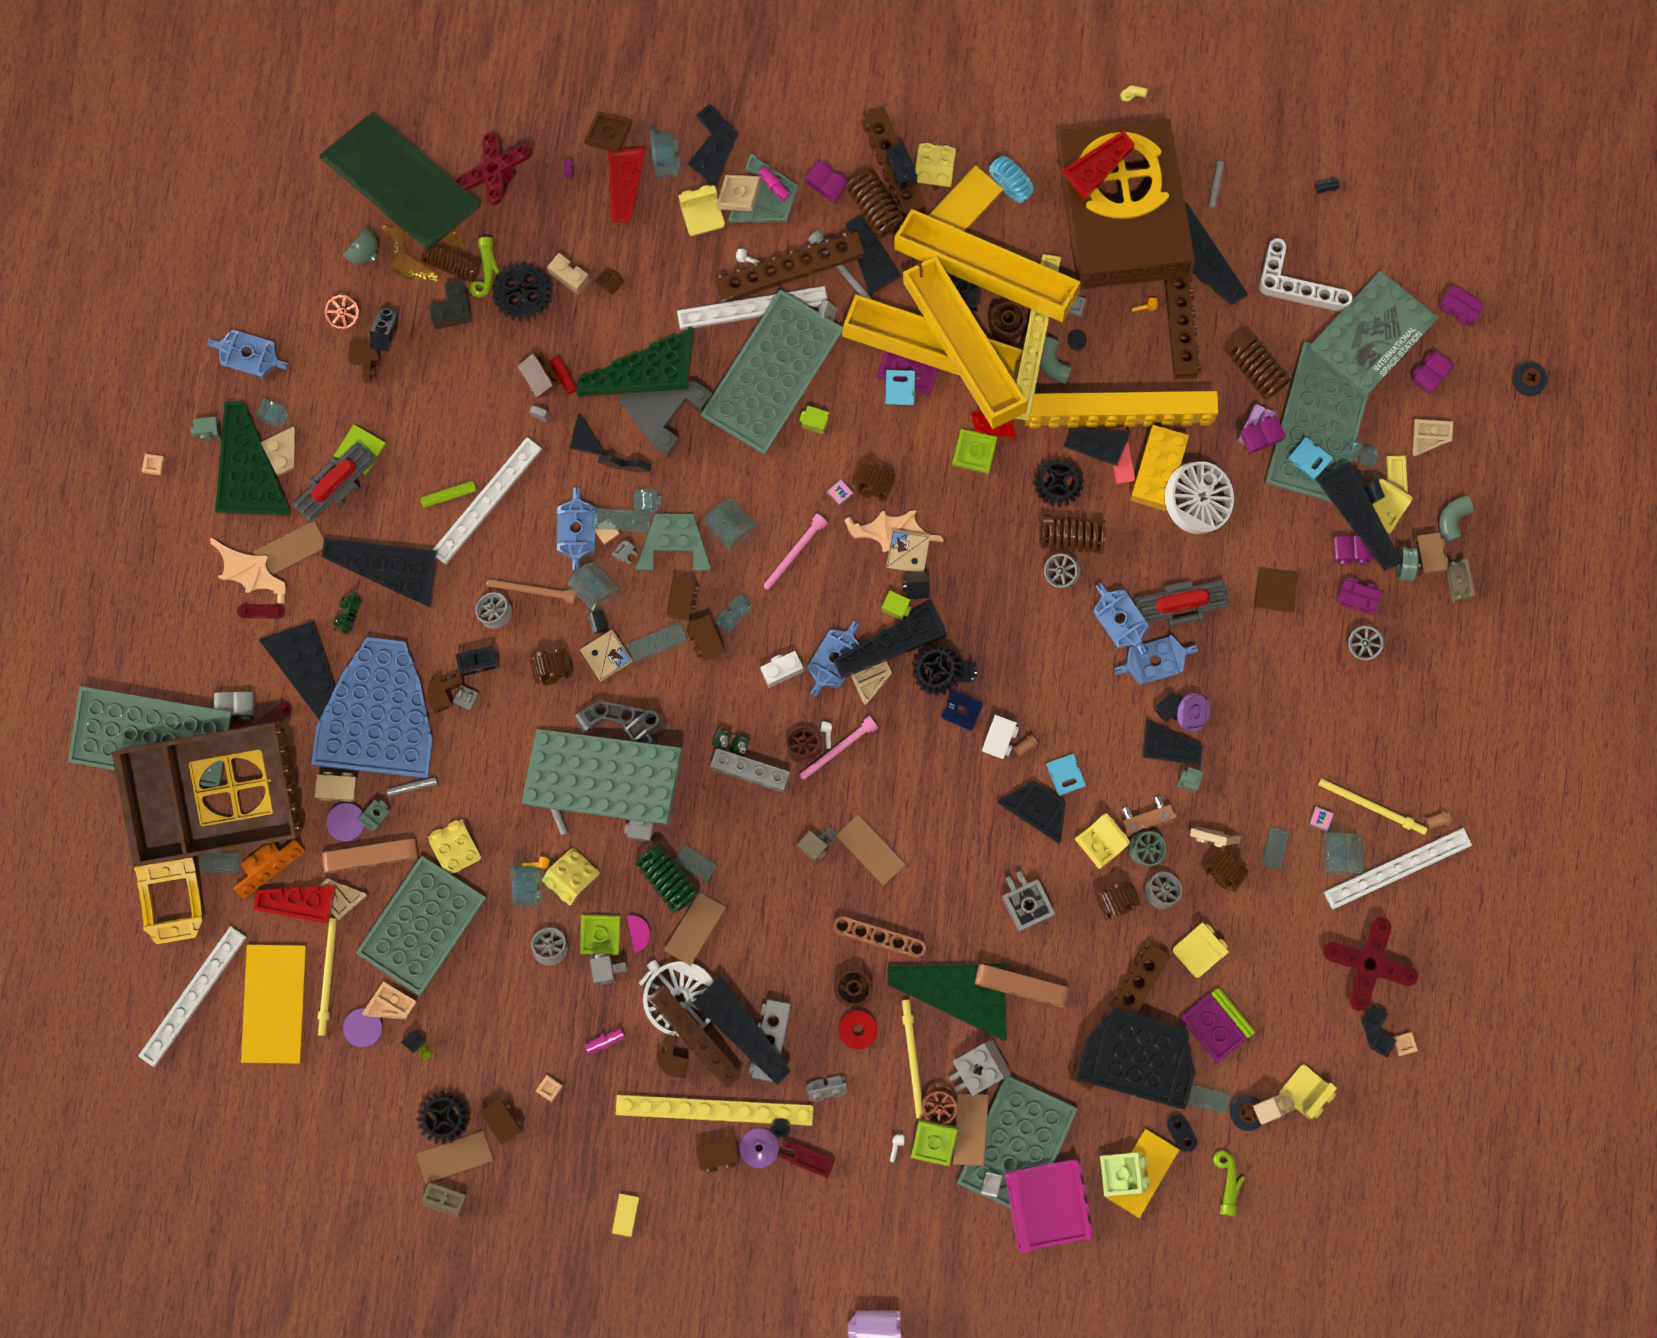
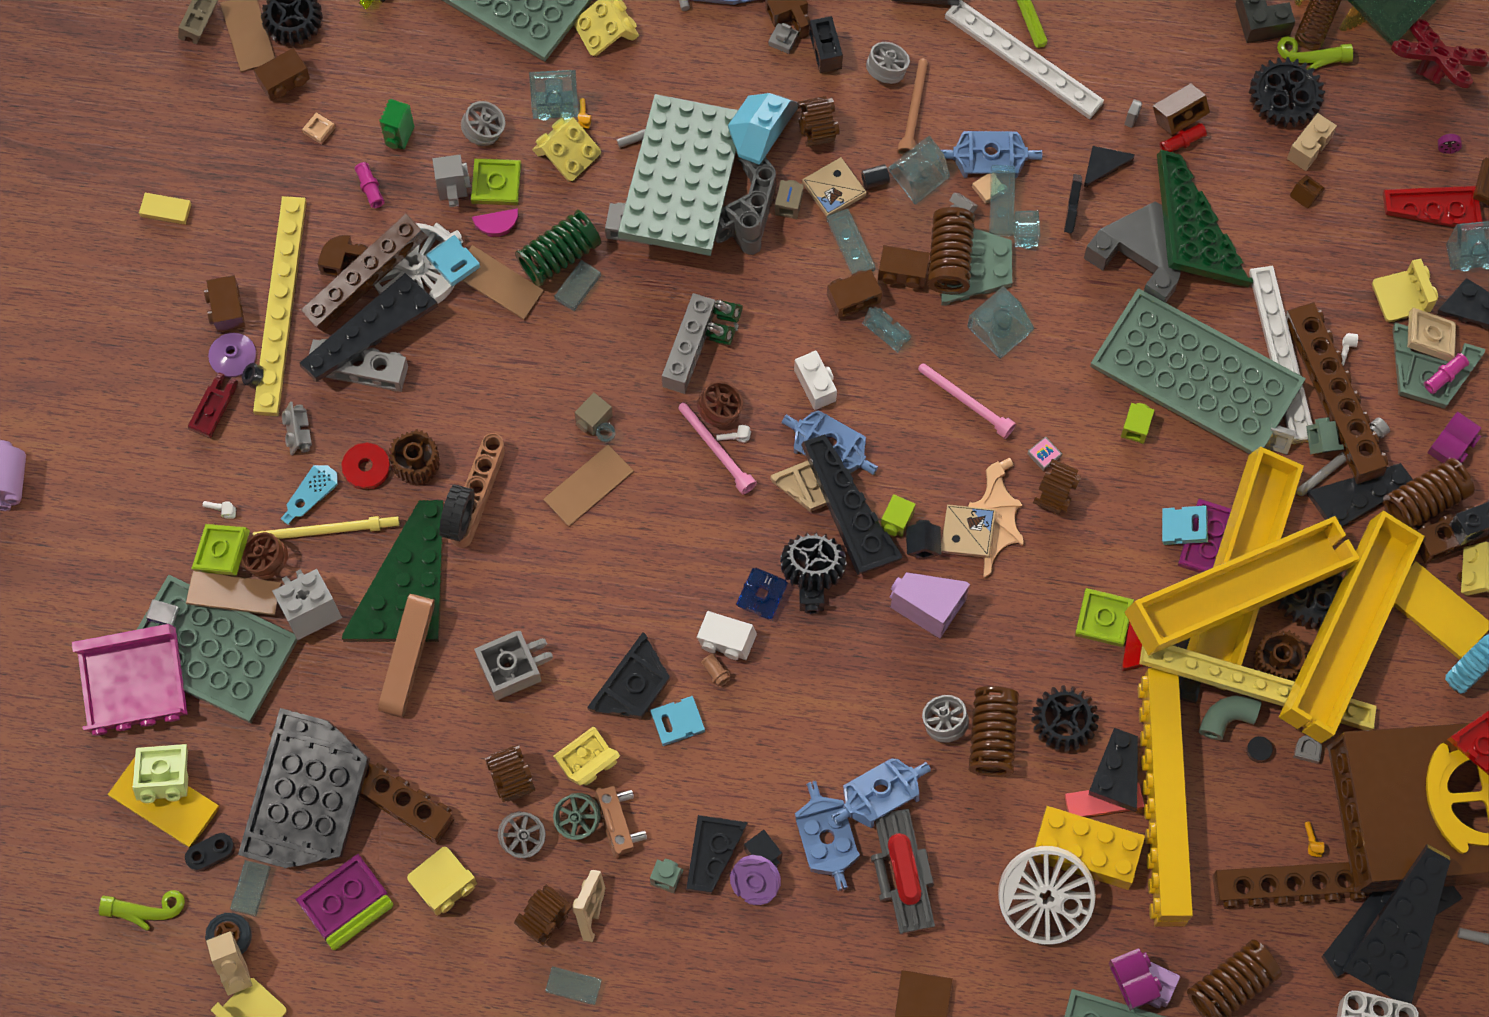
camera: 90 degrees right, 10 degrees down
(552, 715) = (760, 124): none -> medium azure wedge
(553, 1018) = (396, 124): none -> green brick
(618, 691) = (789, 199): none -> dark tan brick
(670, 564) = (951, 250): none -> reddish brown piece
(676, 967) = (449, 257): none -> medium azure piece
(827, 279) = (1323, 436): none -> sand green brick
(883, 1075) = (307, 494): none -> medium azure piece
(911, 946) = (456, 512): none -> black tyre
(971, 580) = (928, 600): none -> lavender slope
(1226, 246) = (1397, 940): none -> black wing

